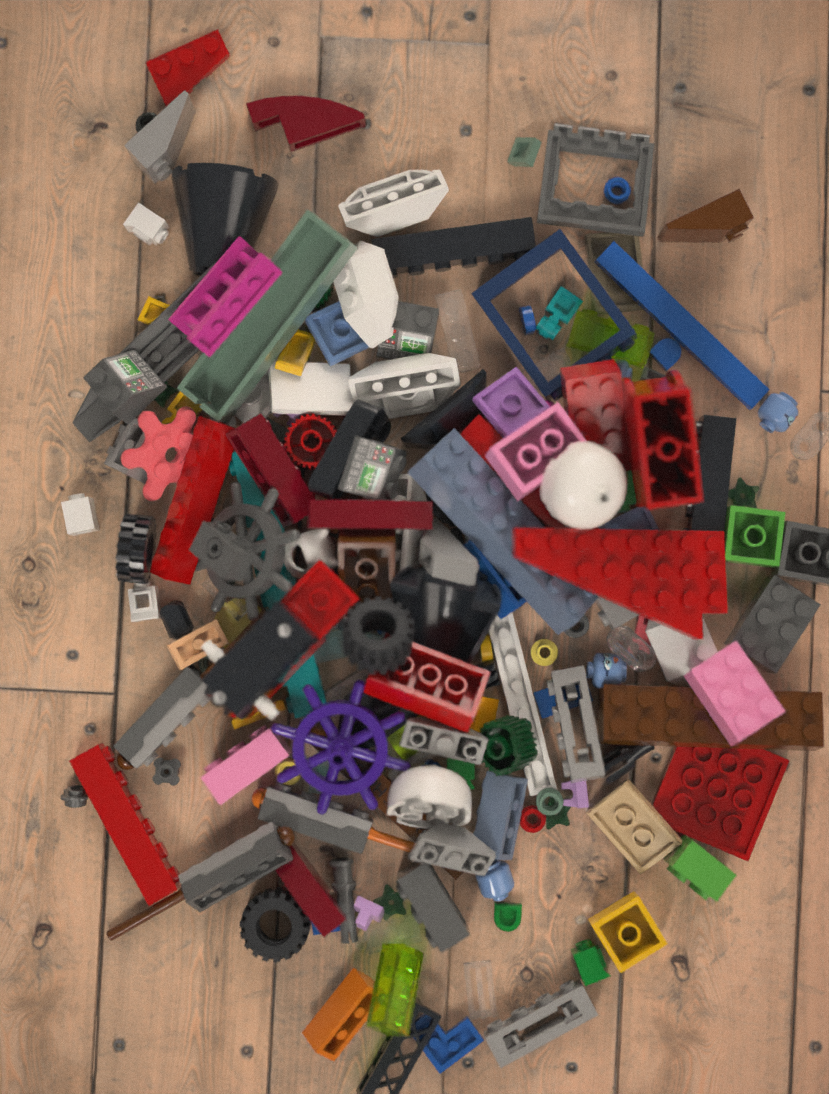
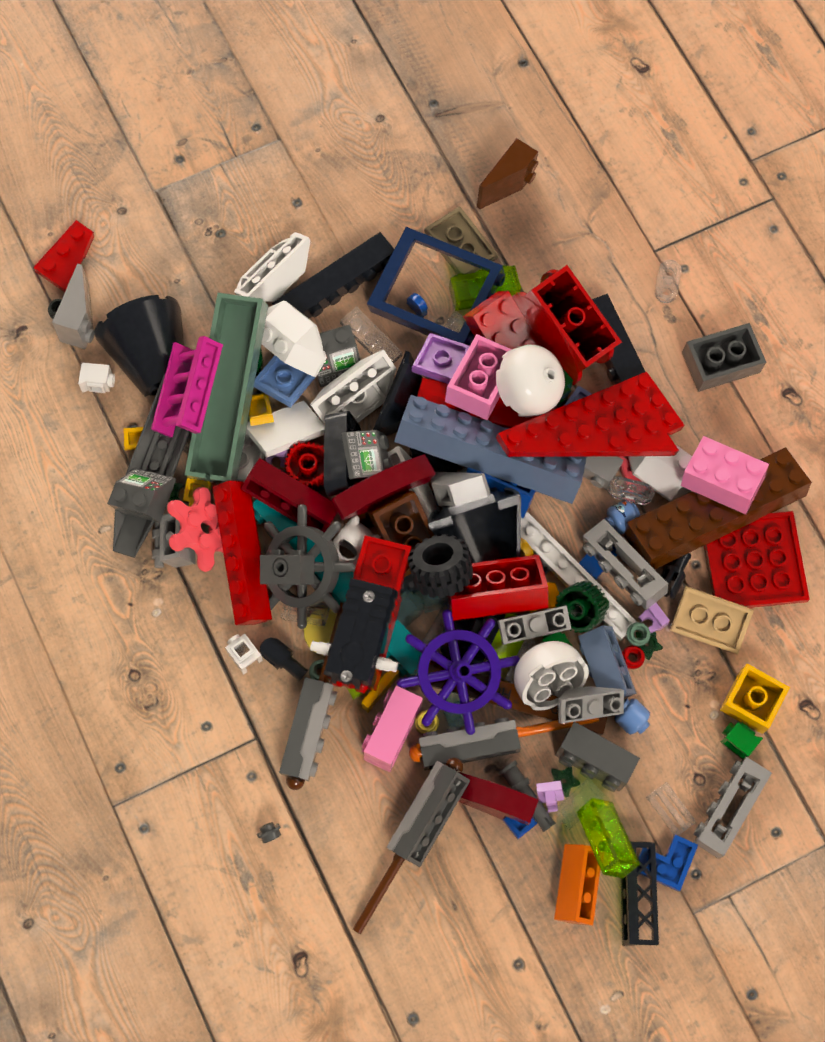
camera: 30 degrees left, 15 degrees down
(80, 515) = (156, 613): white brick -> none
(125, 823) = (321, 831): red brick -> none
(135, 548) = (216, 610): black bush -> none
(173, 767) = (329, 781): dark grey plate -> none
(188, 648) = (301, 660): light nougat plate -> none
(262, 944) = (499, 828): black tyre -> none
(305, 118) = (175, 248): dark red slope -> none
(507, 915) = (657, 741): green tile -> none
(524, 152) = (348, 194): sand green plate -> none
(535, 652) = (565, 536): light yellow plate -> none
(562, 308) = (437, 285): teal plate -> none
(581, 631) = (585, 495): dark grey plate -> none
(591, 217) = (413, 214): dark grey hinge -> none
(622, 184) = (429, 183): blue plate -> none
(666, 353) = (530, 277): blue tile -> none
(681, 325) = (529, 253): blue tile -> none
(706, 874) = (778, 621): bright green brick -> none
(749, 491) = (646, 342): clear green plate -> none
(753, 536) = (670, 366): bright green brick -> none
(773, 623) = (721, 415): dark grey brick -> none
(778, 412) = (633, 277): medium blue head -> none

